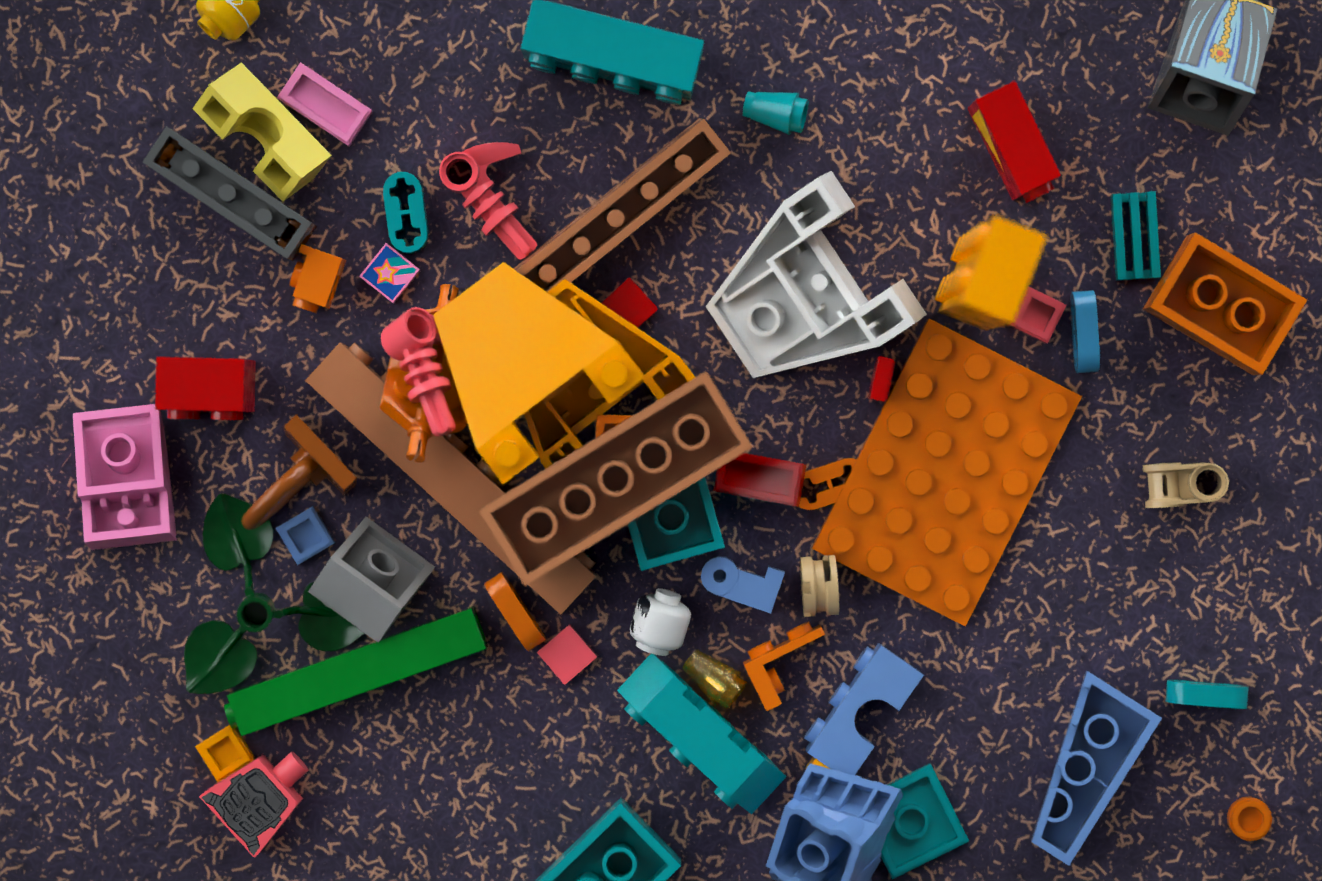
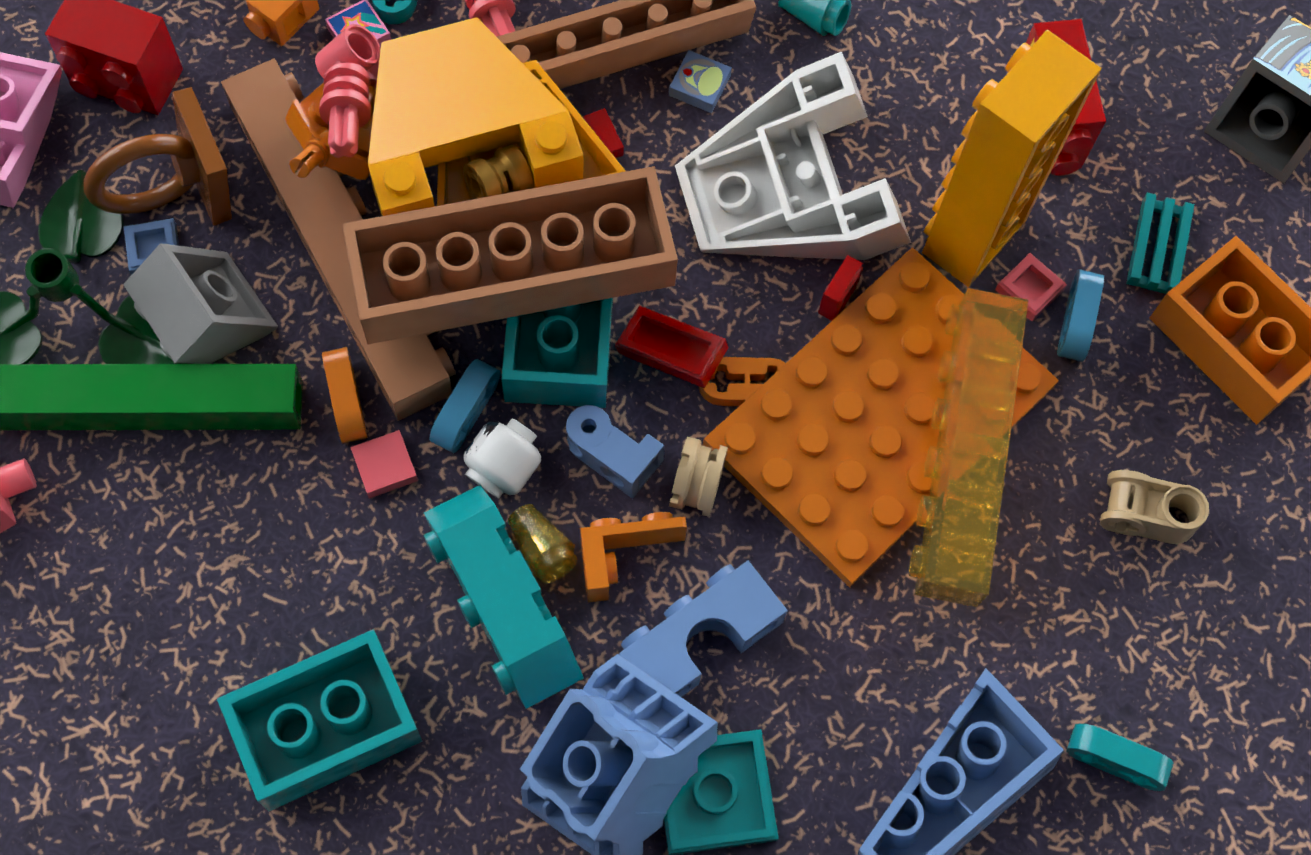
camera: 15 degrees right, 20 degrees down
(577, 406) = (499, 175): none -> pearl gold wheel
(613, 587) = (464, 405): none -> dark azure beam
(700, 217) = (700, 81): none -> tile
(1027, 492) = (971, 448): none -> clear yellow brick

